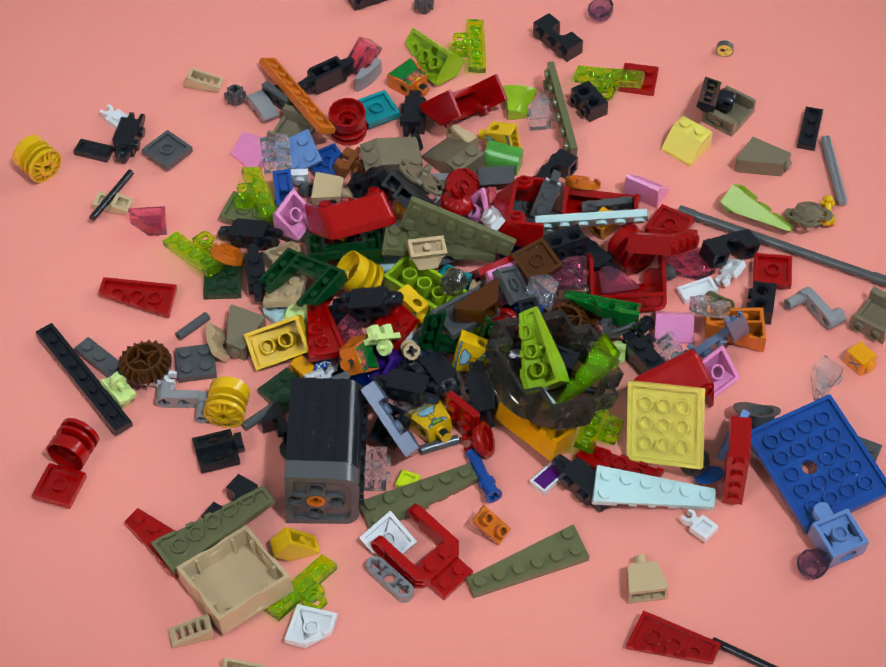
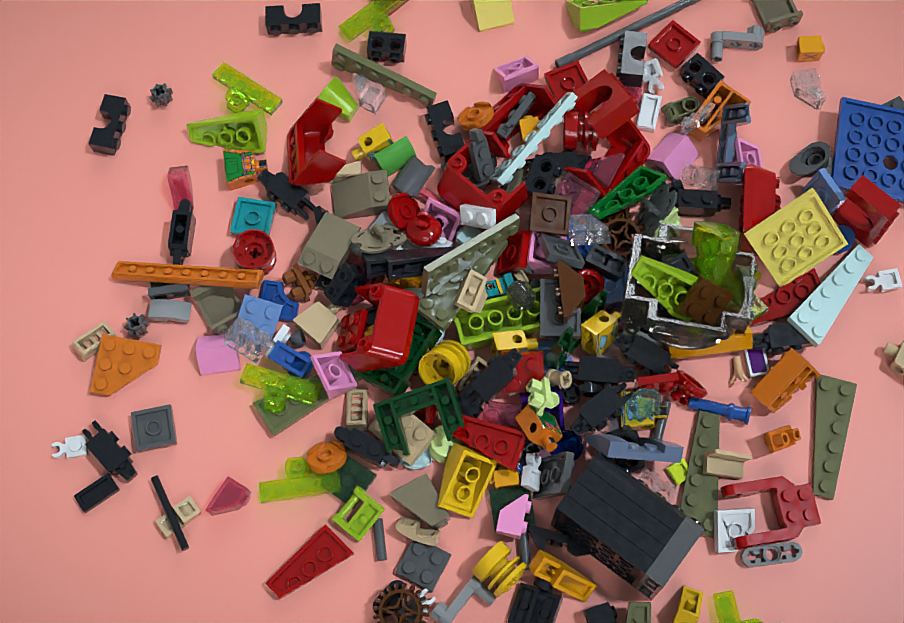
camera: 50 degrees left, 20 degrees up
(36, 158) = (73, 554): yellow wheel -> none
(200, 104) = (121, 363): none -> orange plate
(201, 303) = (363, 518): none -> lime plate
(251, 231) = (317, 422): black hinge -> none
(254, 447) = (561, 576): none -> light orange slope
(272, 386) = (511, 518): none -> bright pink slope
(367, 76) = (208, 200): light grey slope -> none
(434, 407) = (643, 403): none -> clear light blue hair
(437, 500) = (724, 463): none -> tan panel
(528, 471) = (738, 371): none -> light nougat bar
(545, 499) = (784, 380): none -> orange wedge
(552, 379) = (705, 301): none -> reddish brown plate

